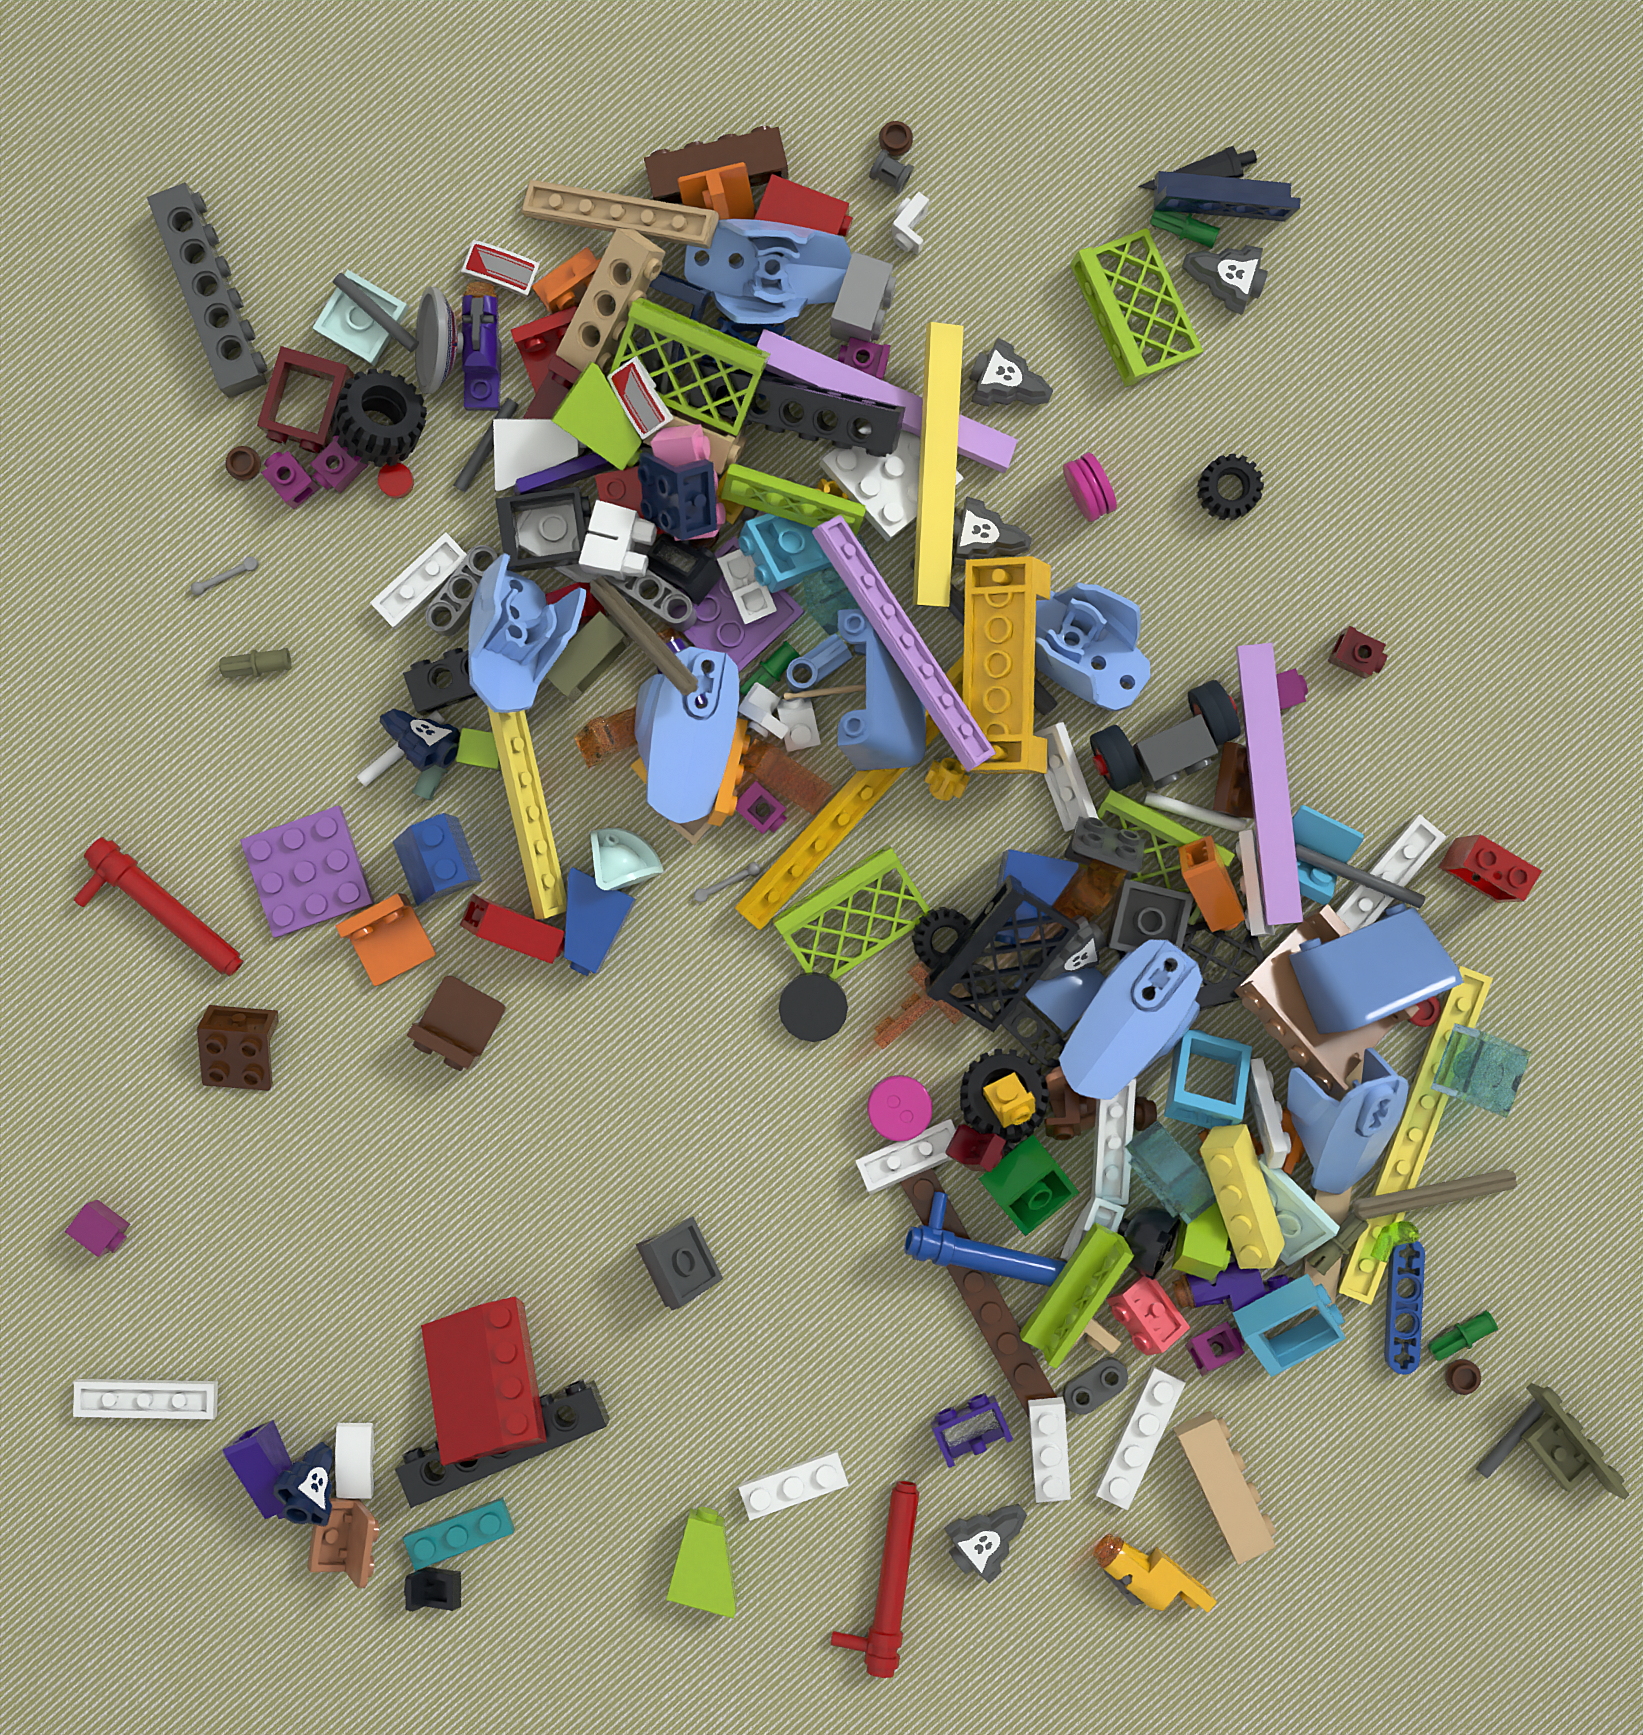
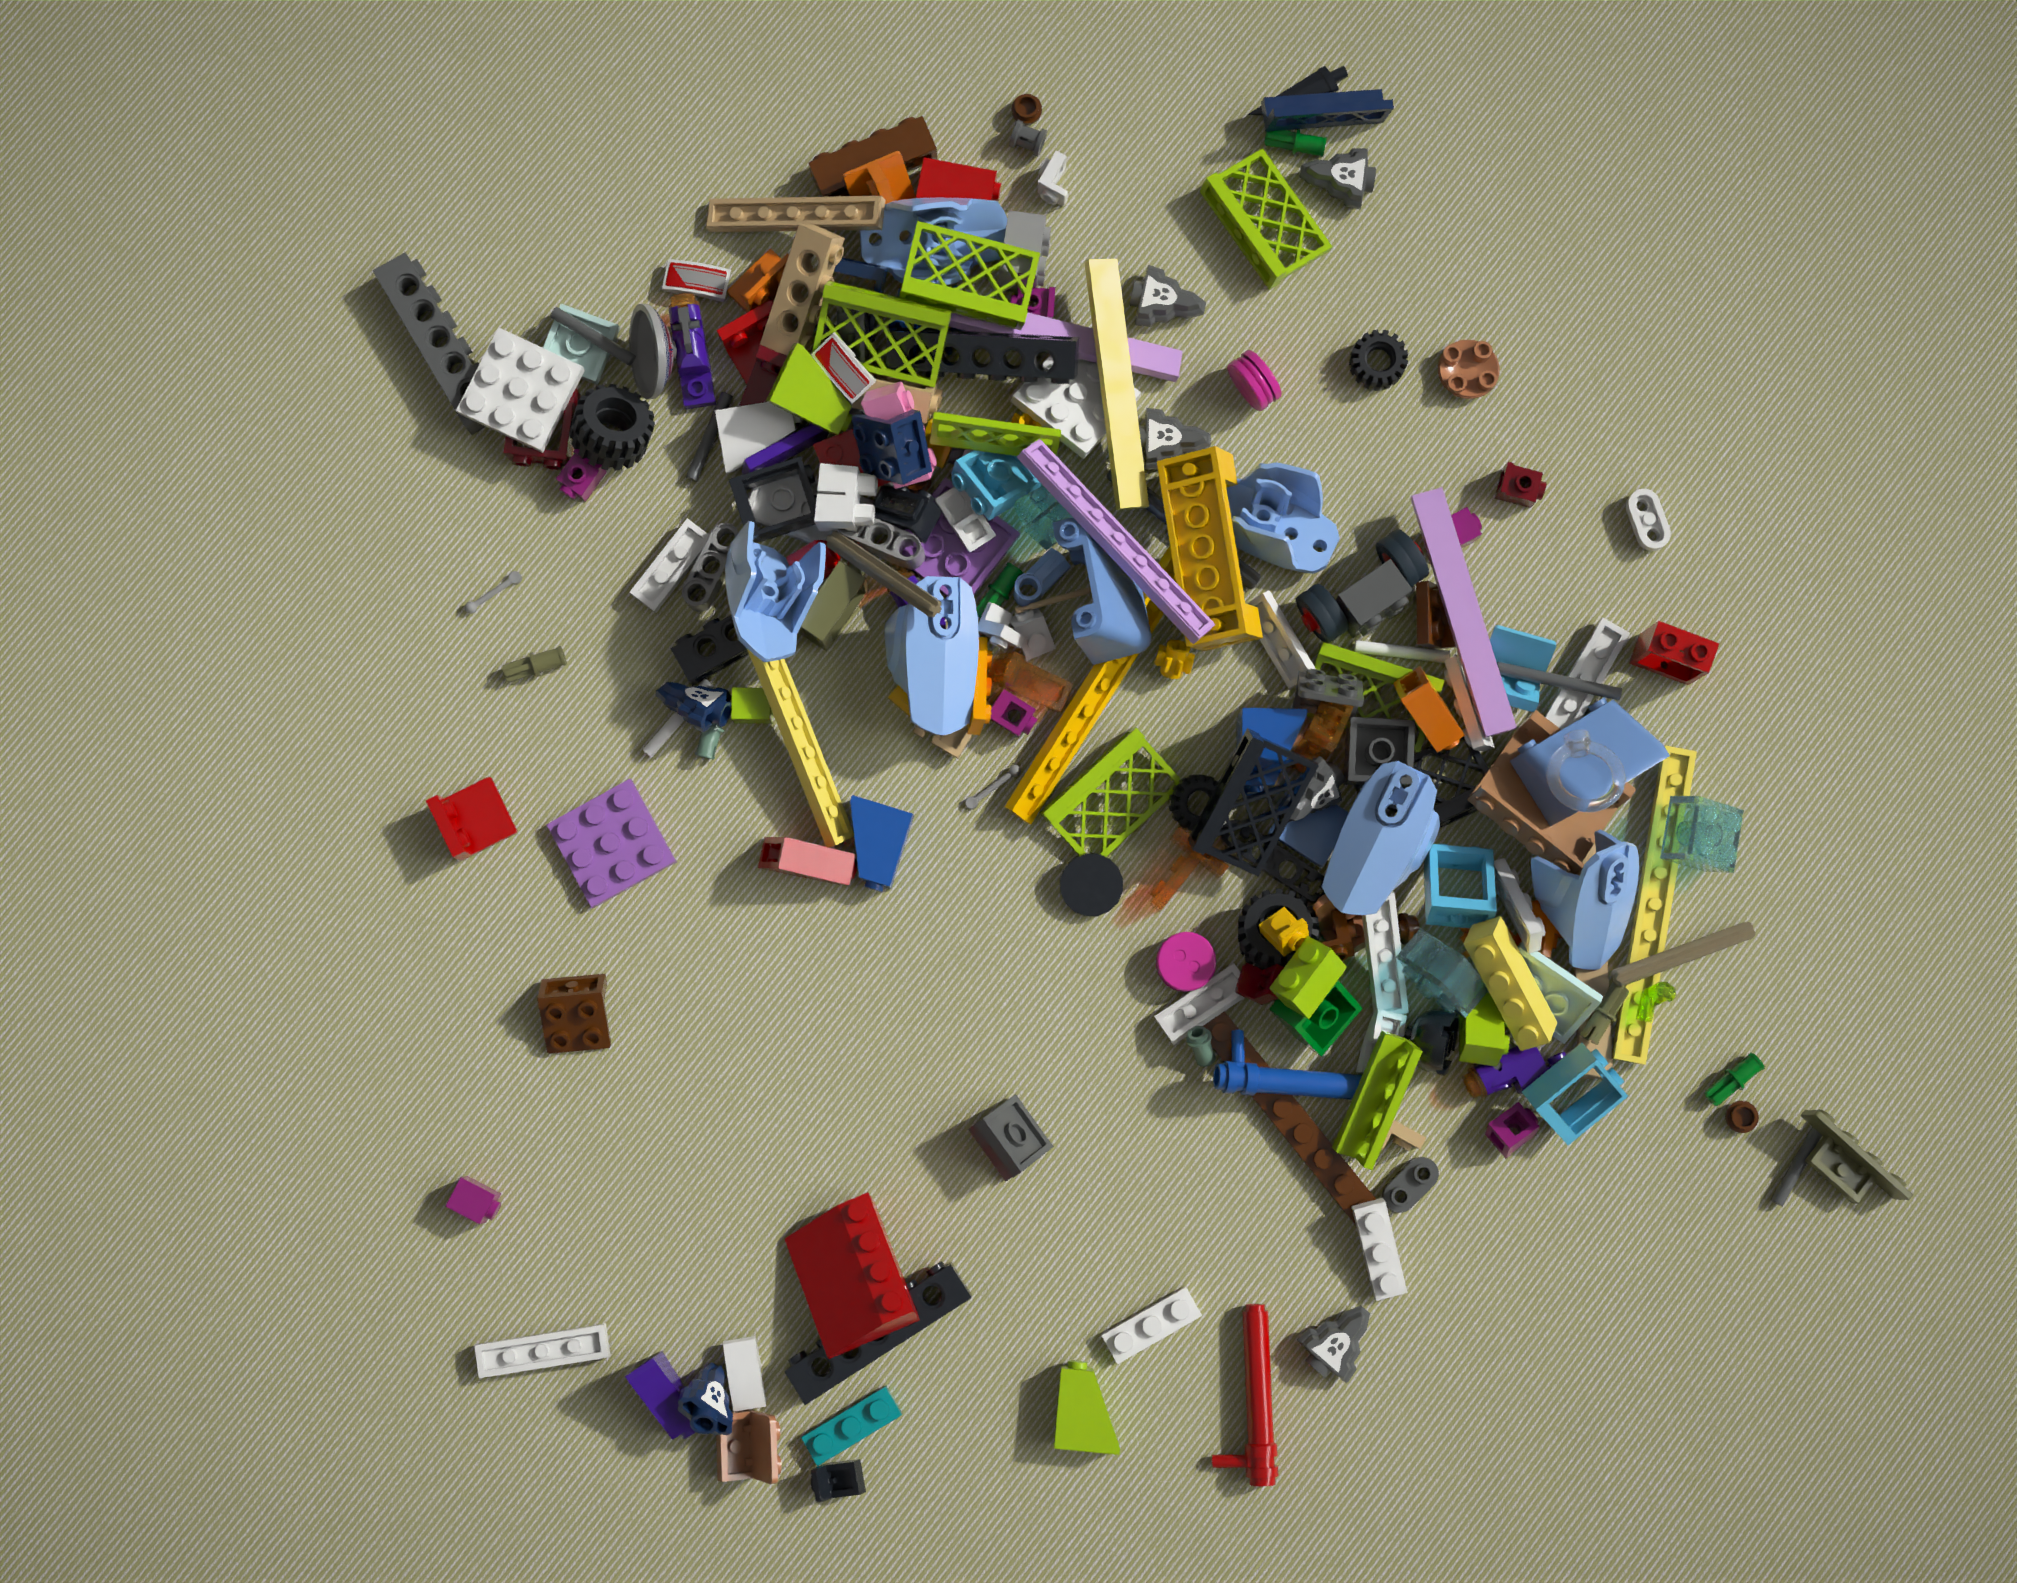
camera: 10 degrees left, 5 degrees down
(122, 872) = (445, 872): red cylinder -> none
(160, 820) = (472, 818): none -> red bracket
(243, 463) = (494, 489): reddish brown plate -> none
(285, 359) = (520, 390): none -> white plate
(297, 486) = (544, 504): magenta brick -> none
(388, 938) = (695, 890): orange bracket -> none
(395, 480) = (633, 481): red tile -> none
(436, 858) = (726, 810): blue slope -> none
(457, 1023) = (772, 954): reddish brown bracket -> none
(607, 736) = (862, 674): clear orange bracket -> none
(622, 858) = (895, 780): light aqua hat -> none
(783, 346) = (964, 302): none -> lime fence
(898, 1196) = (1199, 1040): none -> sand green pin
(970, 1427) = (1304, 1242): dark purple window -> none
(1025, 1156) = (1308, 977): none -> lime brick
(1139, 1437) = (1459, 1225): white plate -> none
(1148, 1315) = (1445, 1110): coral bracket -> none
(1149, 1578) = (1492, 1353): yellow plate -> none
(1224, 1487) = (1545, 1255): tan brick -> none
(1327, 514) = (1468, 368): none -> nougat dish
(1367, 955) = (1579, 745): none -> clear piece
(1397, 1305) = (1680, 1060): blue beam -> none
(1427, 1014) = (1644, 792): red tile -> none
(1493, 715) = (1649, 520): none -> white plate

